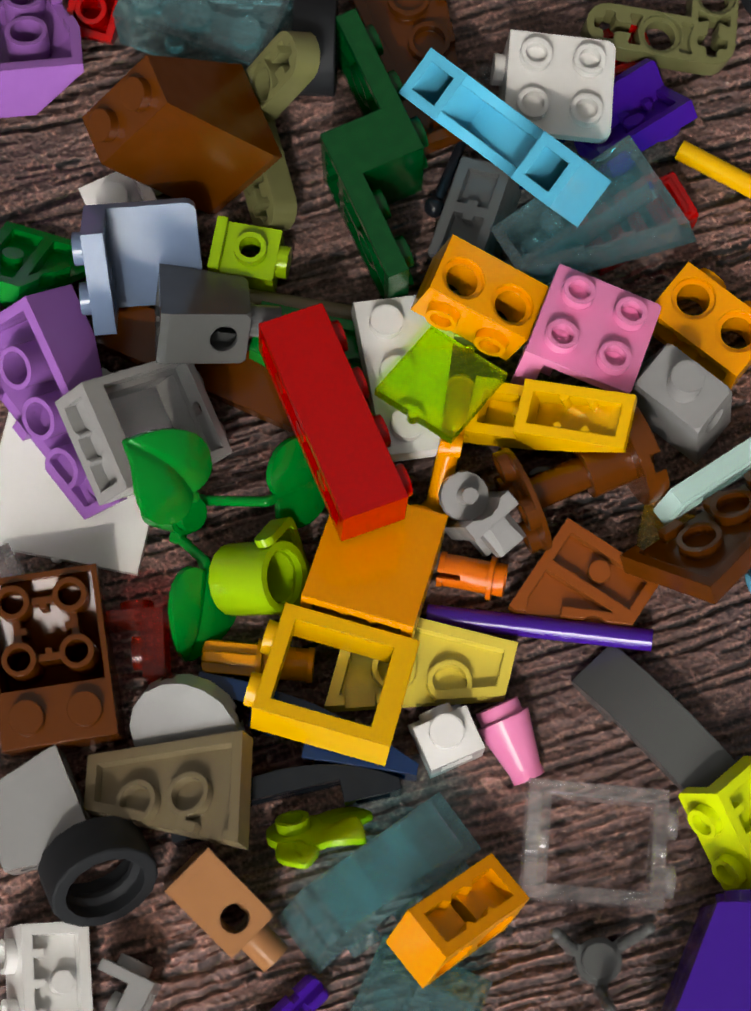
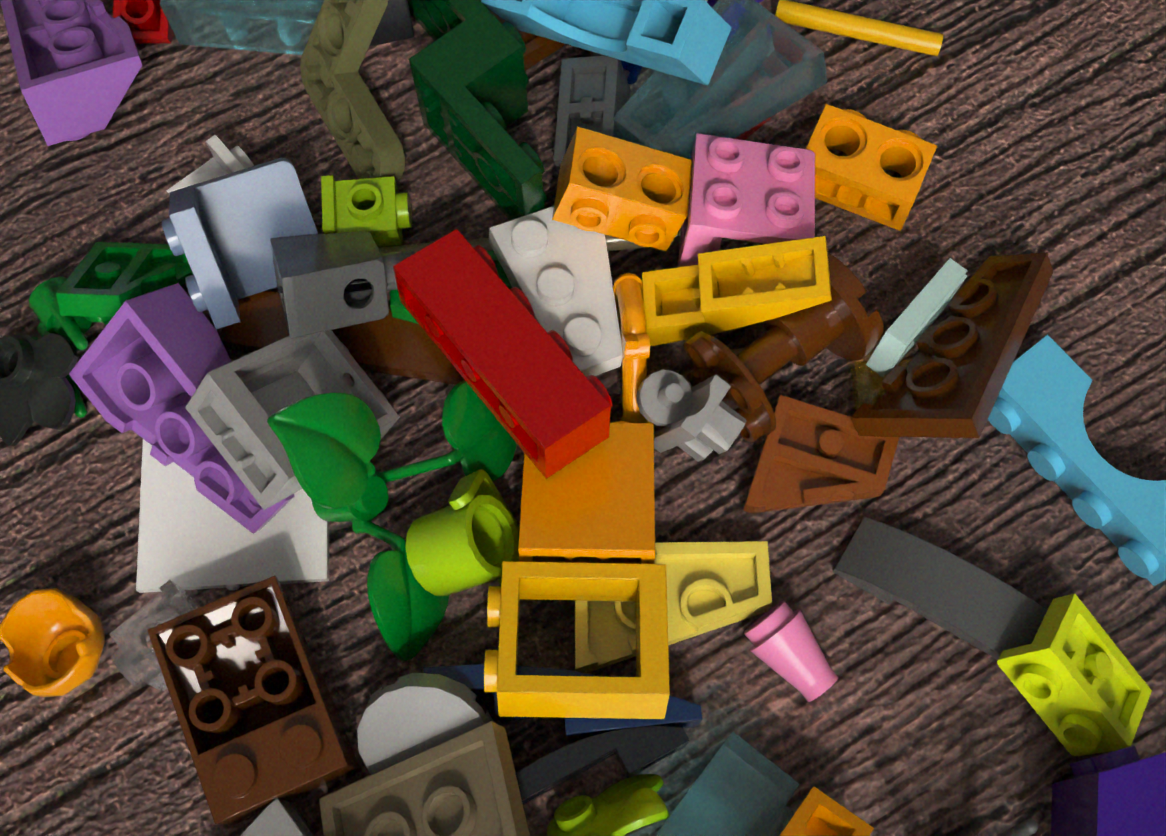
camera: 15 degrees left, 5 degrees down
(152, 648) = (363, 657): clear red bracket -> none
(184, 129) = (260, 92): reddish brown slope -> none
(244, 658) = (471, 639): light orange axle -> none
(435, 204) = (546, 120): black hinge -> none
(440, 384) = (607, 285): clear neon green piece -> none
(446, 738) = (720, 668): white brick -> none
(472, 574) = (695, 482): orange pin -> none
(535, 844) = (855, 757): clear window -> none
(543, 627) = (789, 518): dark purple bar -> none
(682, 401) = (869, 238): light grey torso -> none

